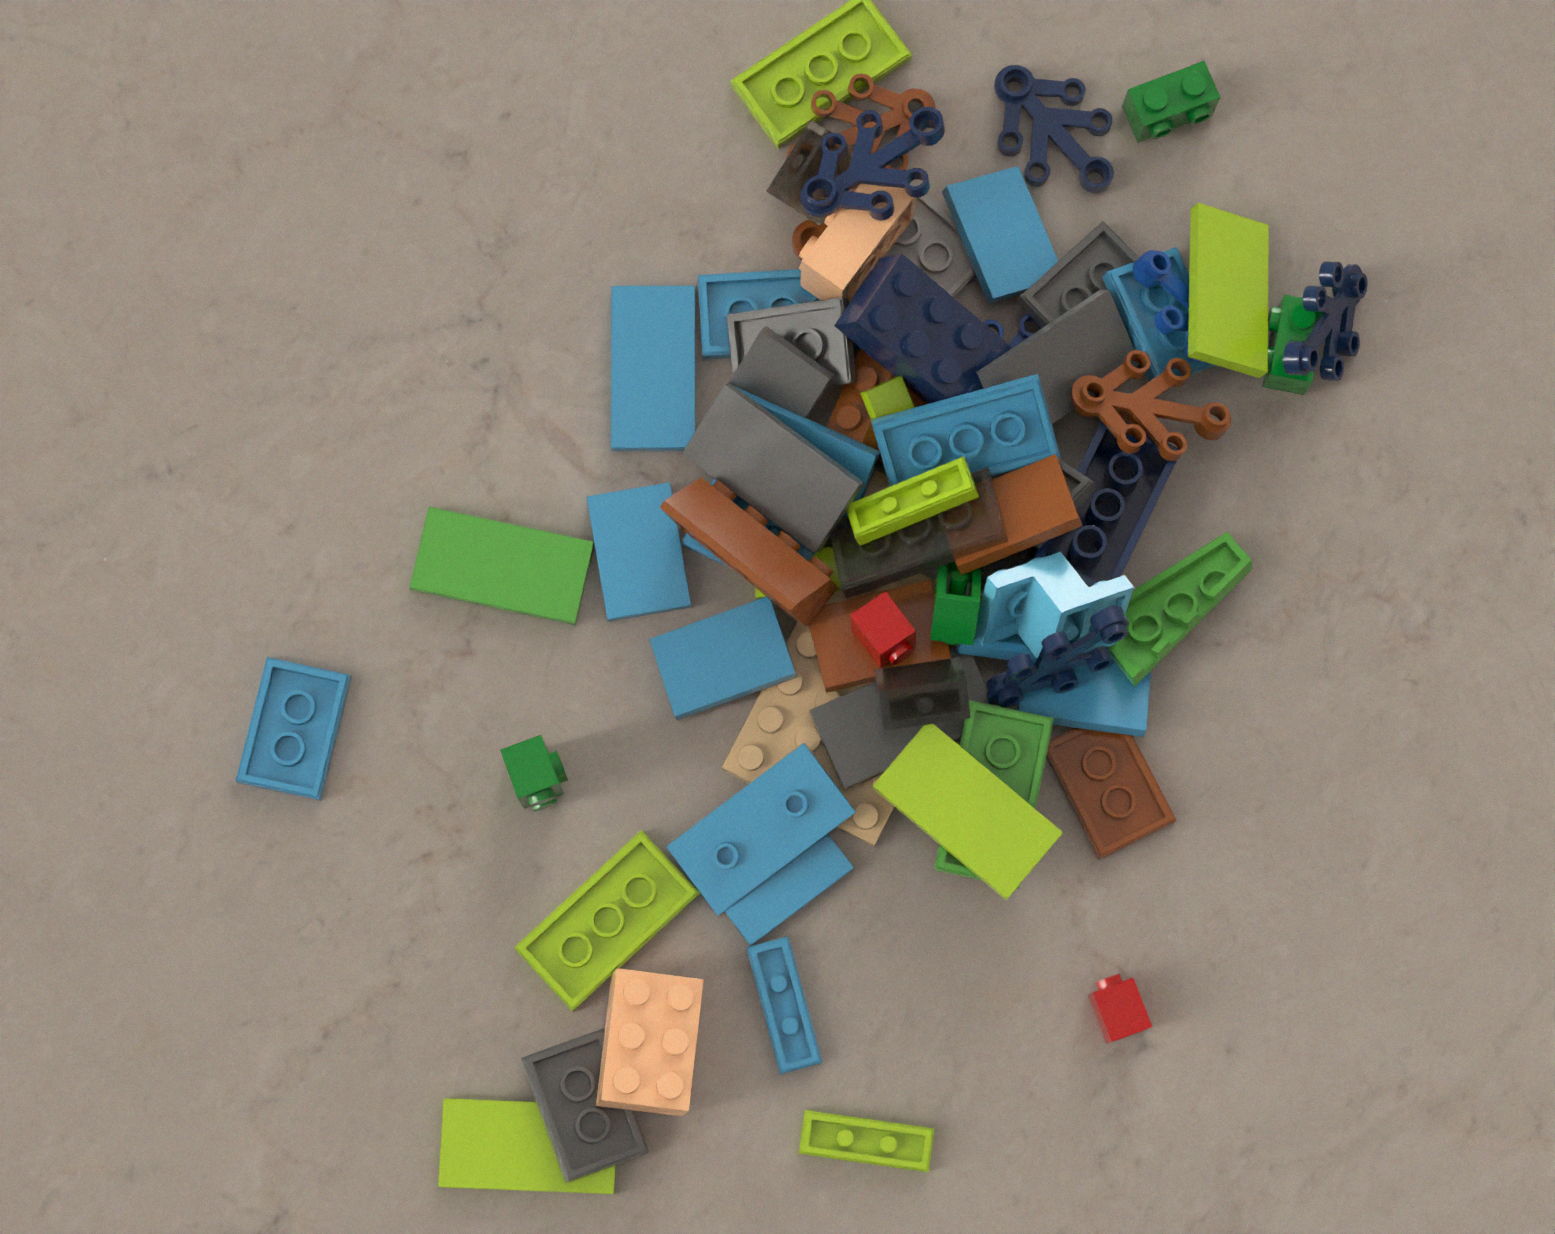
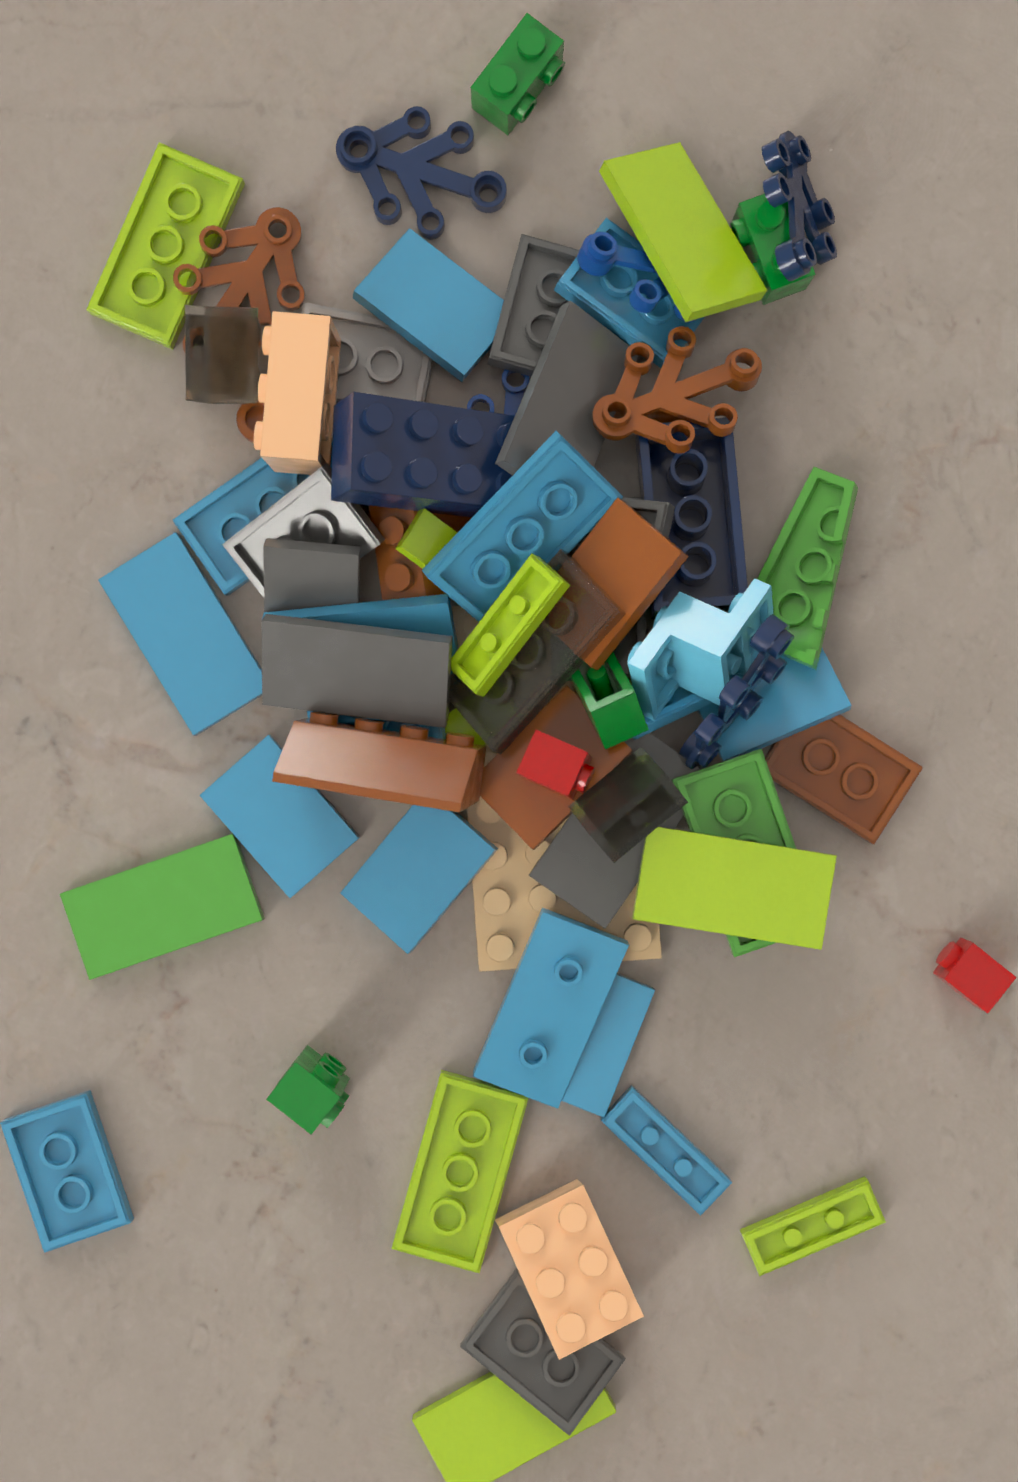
camera: 25 degrees left, 10 degrees up
(869, 168) = (268, 321): dark blue plant -> none

